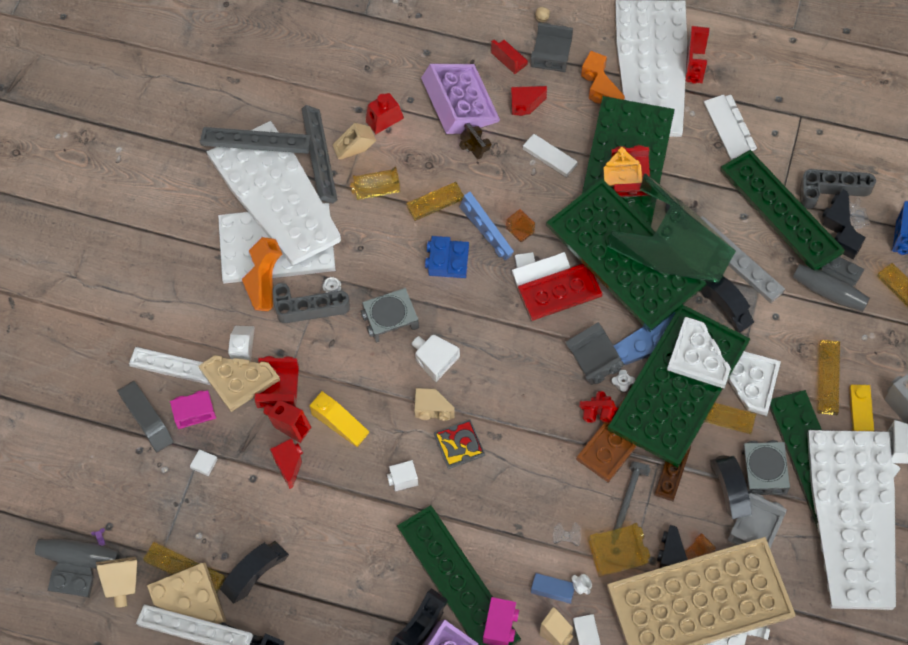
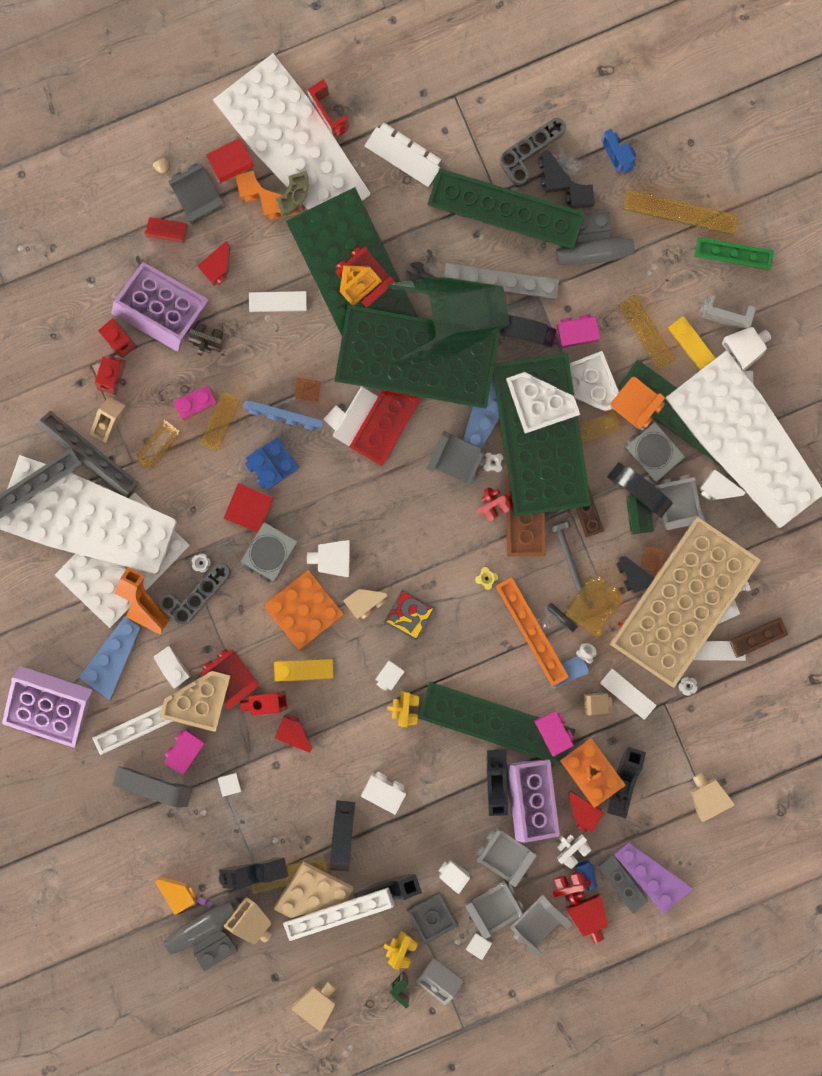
camera: 45 degrees left, 25 degrees up
(84, 513) = (177, 894): none -> light orange slope
(124, 298) = (46, 706): none -> lavender slope
(152, 537) = (249, 874): none -> black arch
(198, 304) = (110, 660): none -> medium blue wing
(318, 559) = (383, 792): none -> white brick
(379, 378) = (303, 609): none -> orange plate
(399, 506) = (405, 717): none -> yellow hips
(403, 273) = (248, 508): none -> red tile
(410, 88) = (117, 338): none -> red torso
(428, 174) = (195, 402): none -> dark pink brick
(539, 460) = (486, 573): none -> light yellow plate
(548, 531) = (532, 631): none -> orange plate
(585, 543) = (563, 618): none -> black bar
(595, 41) = (230, 160): none -> red tile
(624, 90) = (295, 194): none -> olive tile
(713, 510) = (639, 516): none -> dark green panel
(771, 334) = (578, 331): none -> dark pink brick
(780, 417) = (637, 403): none -> orange bracket
(802, 538) = (719, 487): none -> white slope

